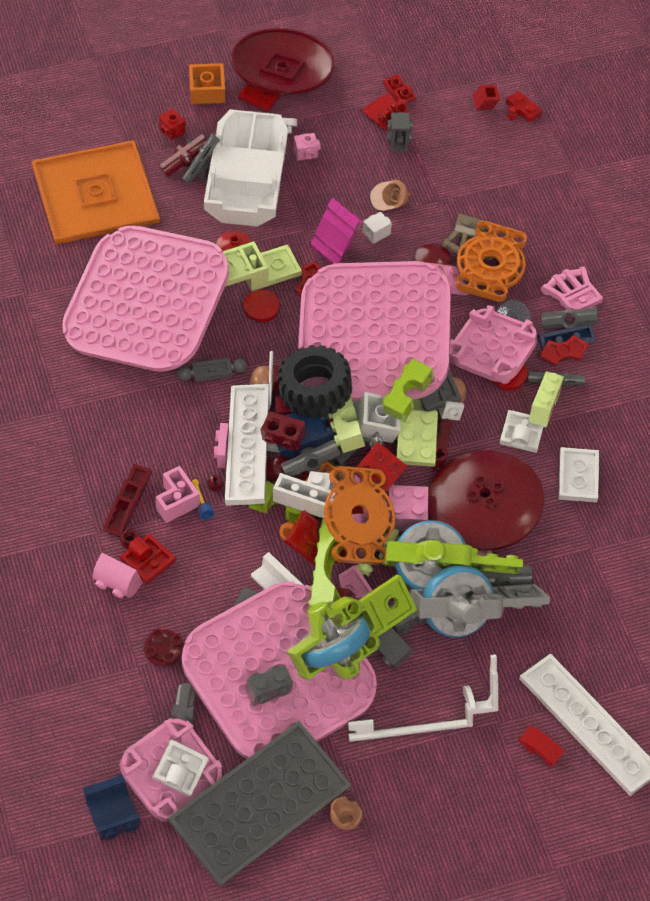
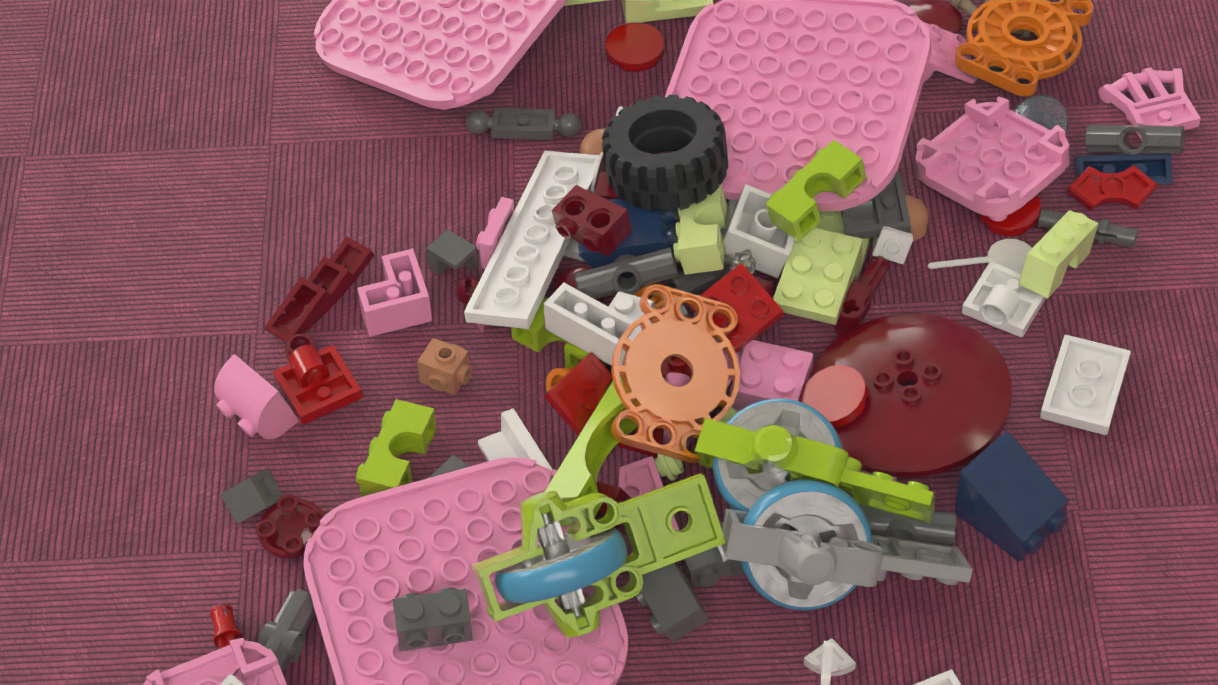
camera: 20 degrees right, 5 degrees down
(134, 633) = (252, 495): none -> dark grey panel
(149, 716) = (224, 626): none -> red axle
(198, 461) = (451, 251): none -> dark grey panel
(205, 510) = (435, 325): blue hinge -> none
(209, 576) = (403, 430): none -> lime arch
(220, 534) = (444, 366): none -> nougat brick
(448, 508) = (837, 394): none -> tile
(481, 661) = (841, 661): none -> white tile
(515, 401) = (1006, 252): none -> white piece
(557, 551) = (1010, 499): none -> dark blue slope

